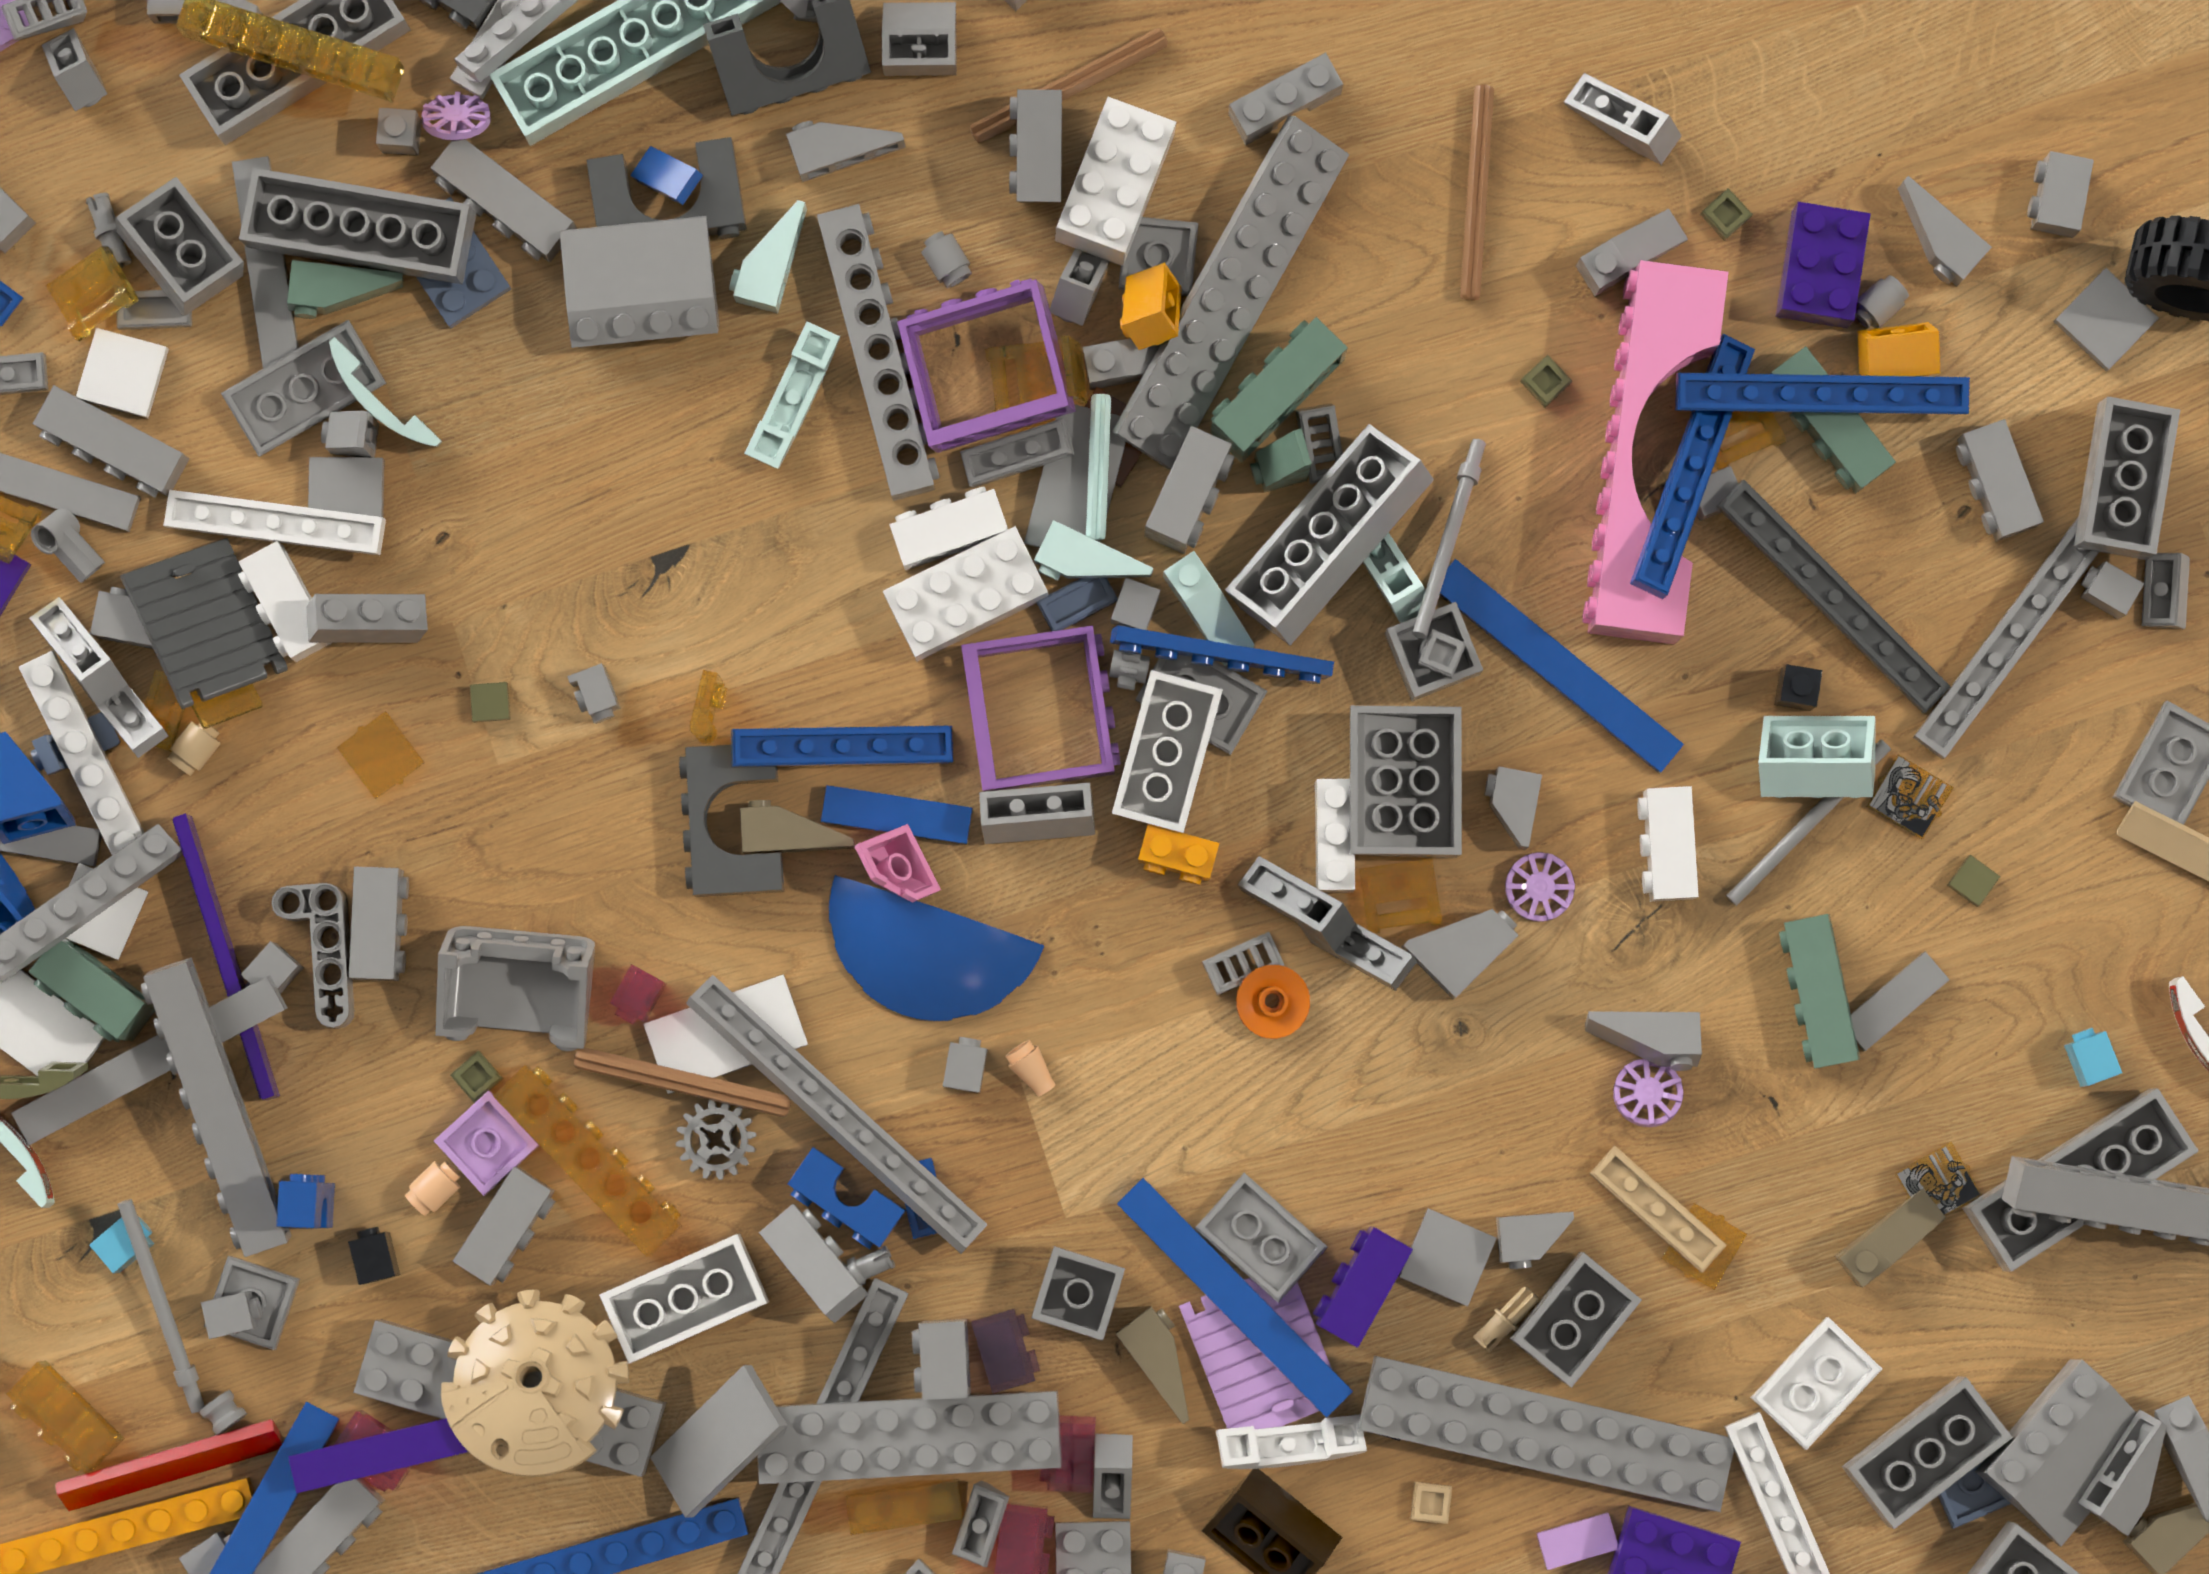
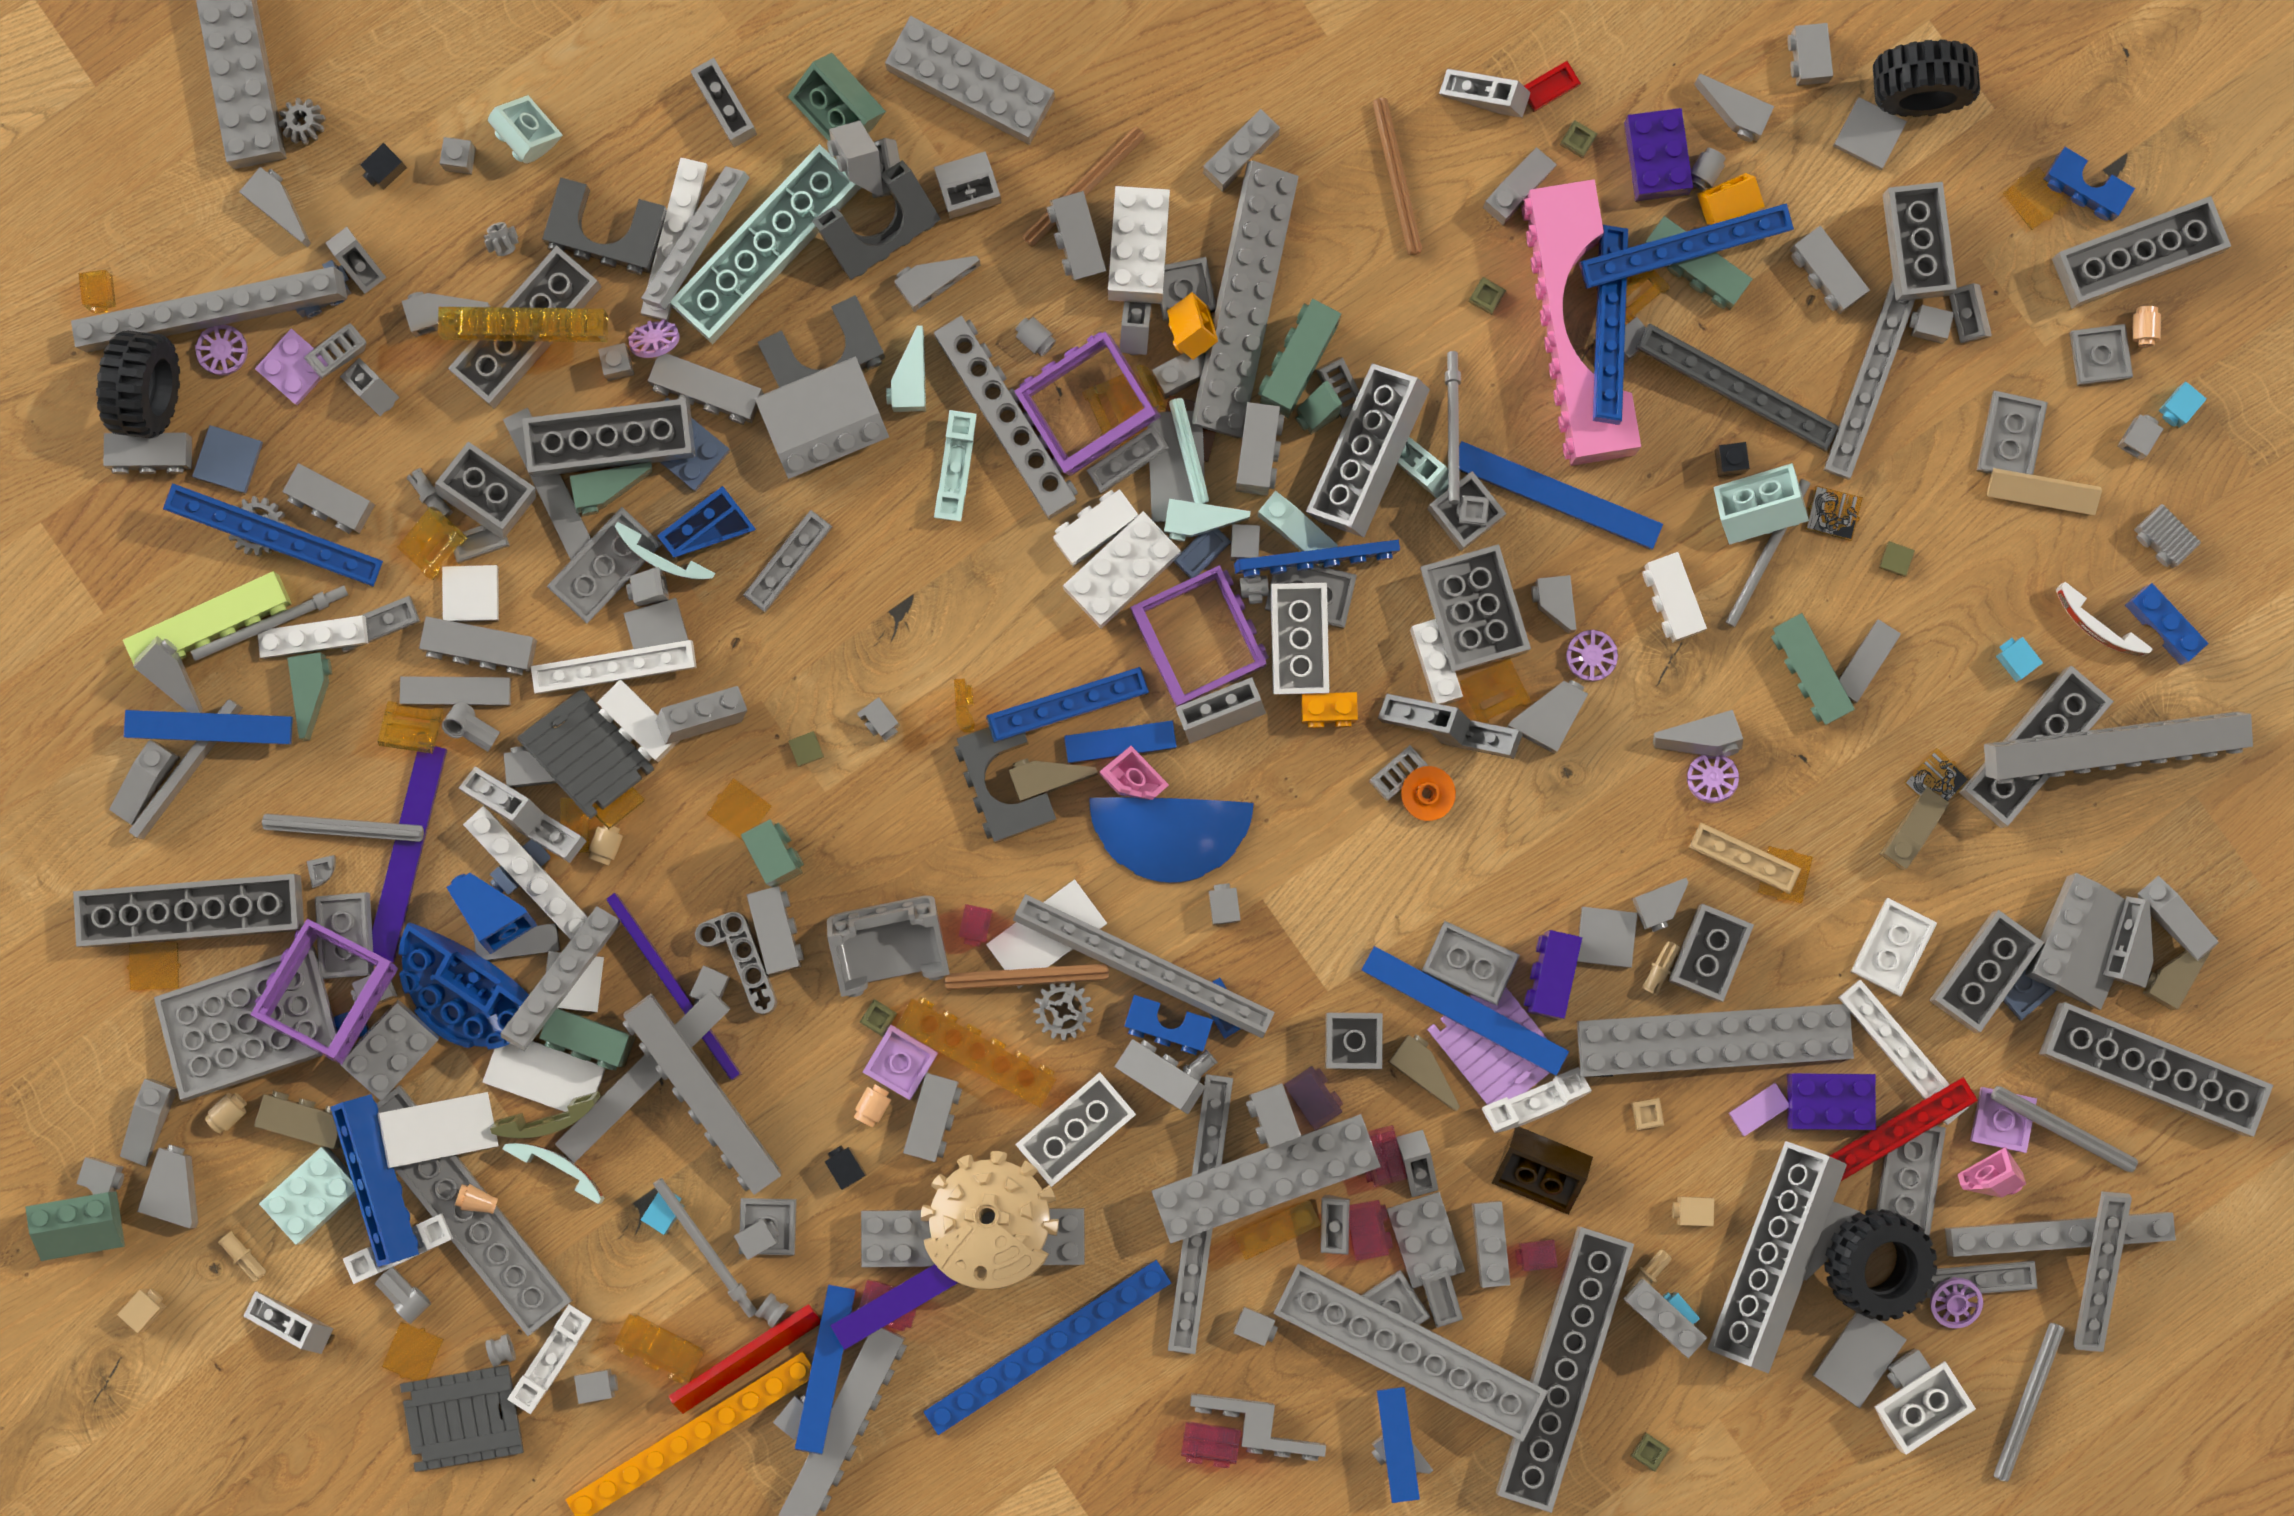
camera: 15 degrees left, 0 degrees up
(305, 1202) = (786, 1142): blue arch -> none
(402, 824) = (772, 854): none -> sand green brick
(451, 374) = (706, 524): none -> blue wedge
(541, 453) = (787, 561): none -> light grey tile
(666, 175) = (817, 336): blue tile -> none
(718, 1441) = (1131, 1222): light grey tile -> none
(1030, 1067) = (1270, 891): light nougat cone -> none
(1712, 135) = (1551, 86): none -> red tile

